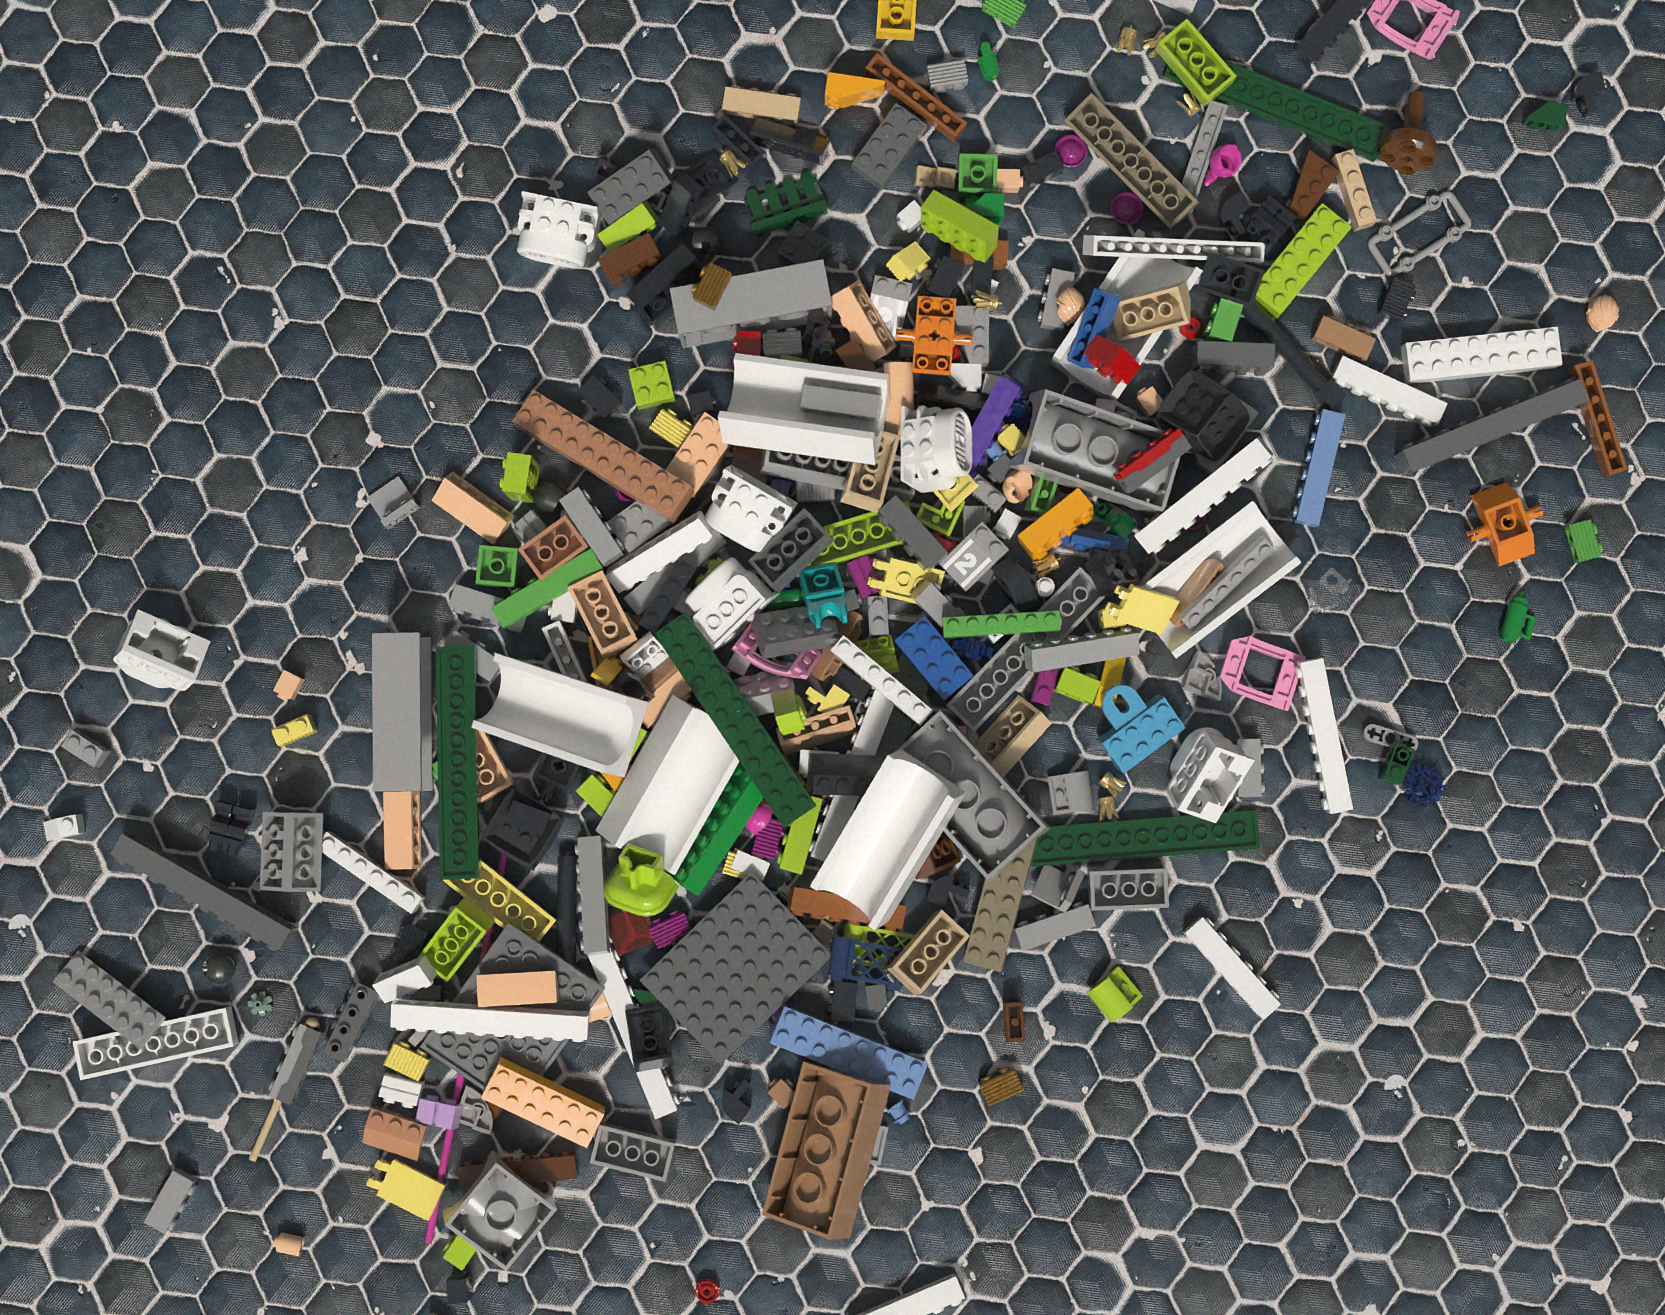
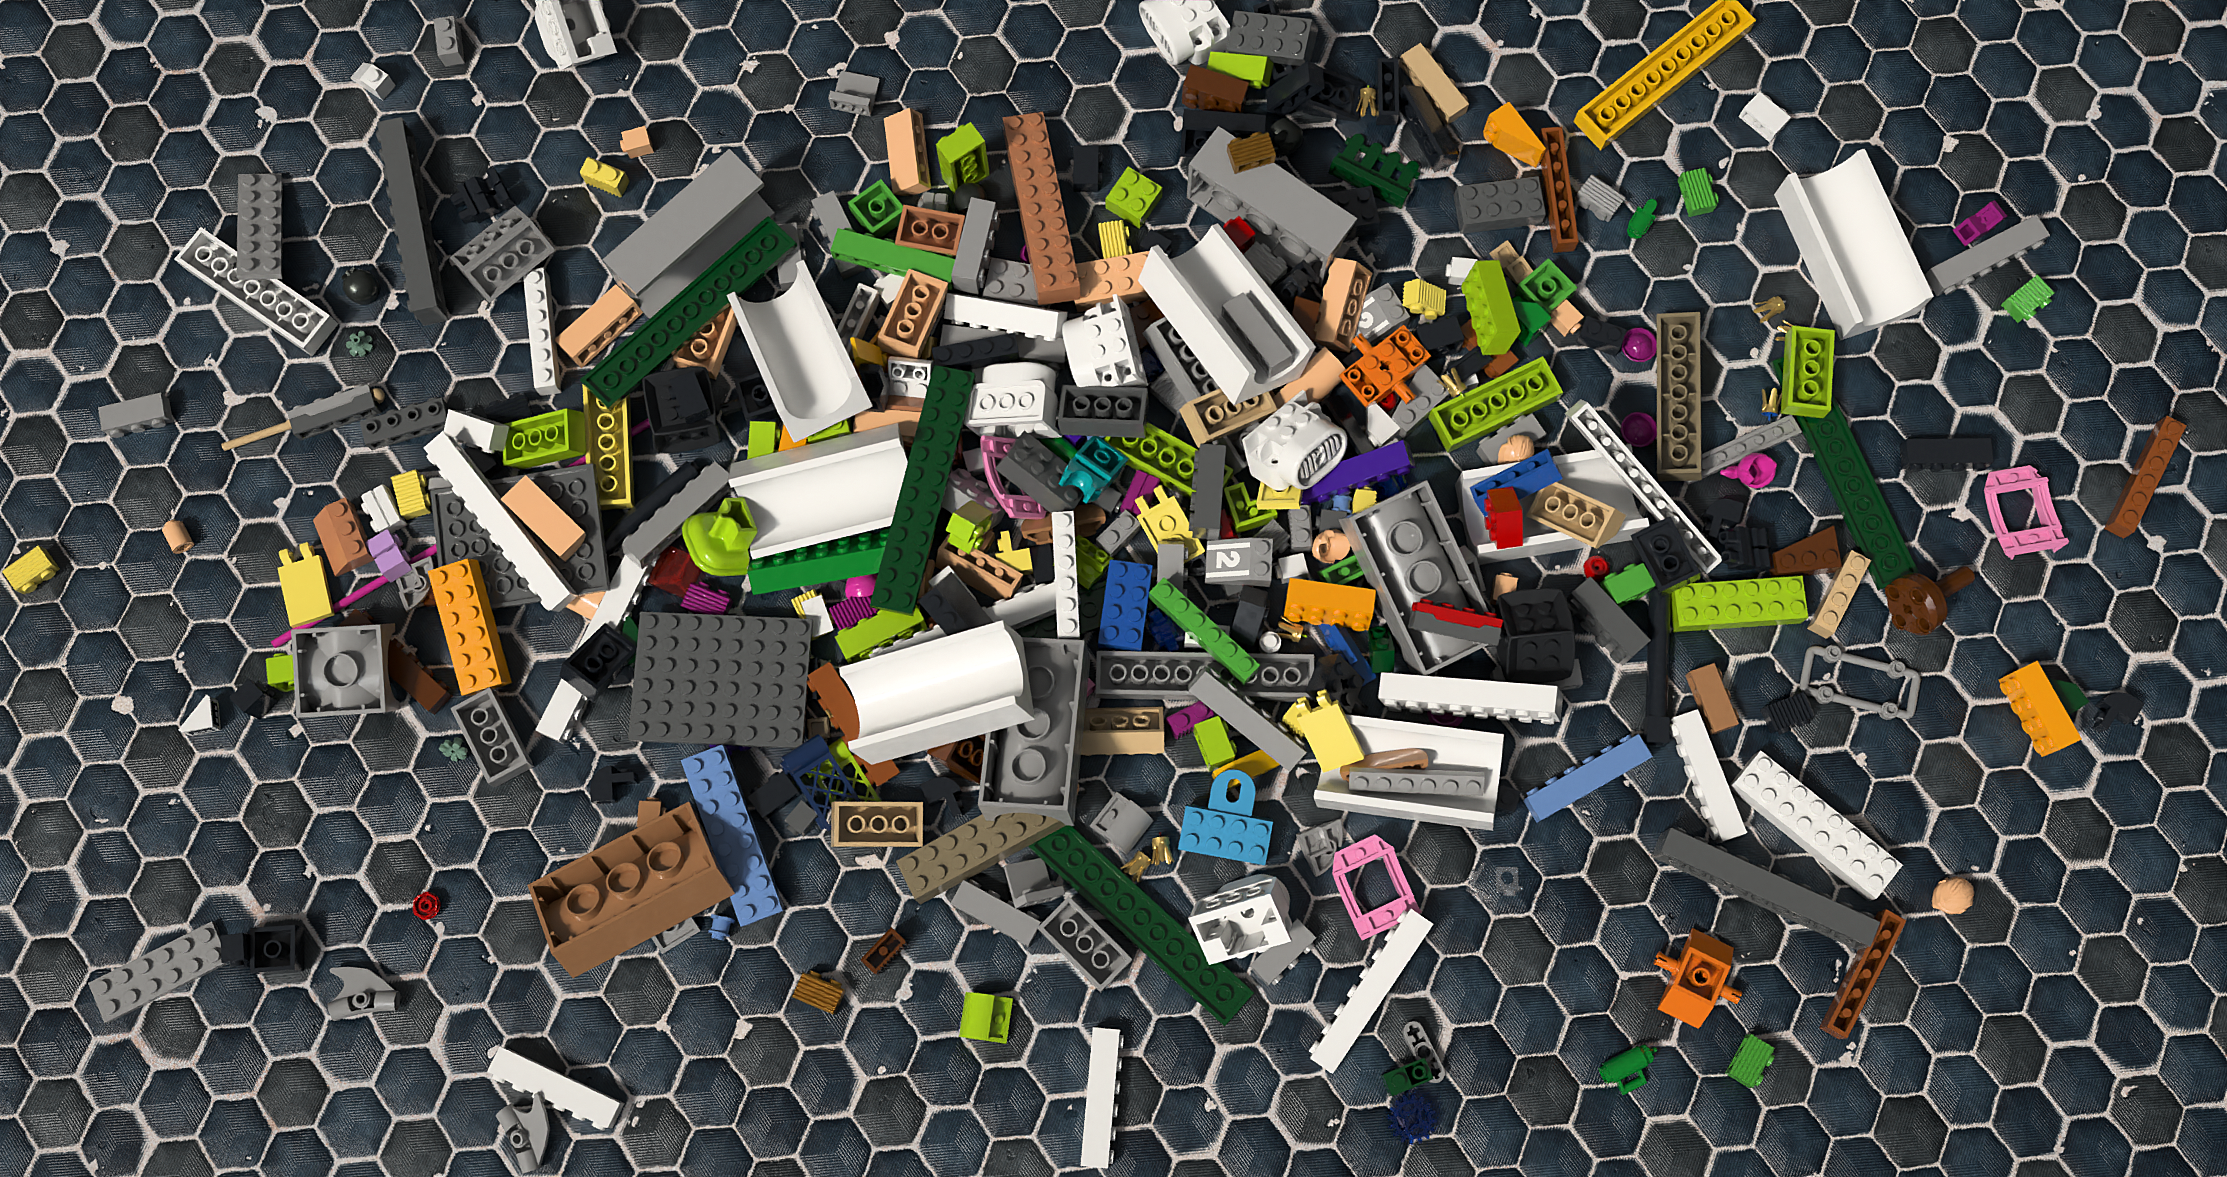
camera: 50 degrees right, 10 degrees down
(616, 1183) = (454, 749): none -> sand green plant
(1023, 285) = (1495, 404): none -> lime brick
(1543, 141) = (2039, 709): none -> light orange brick

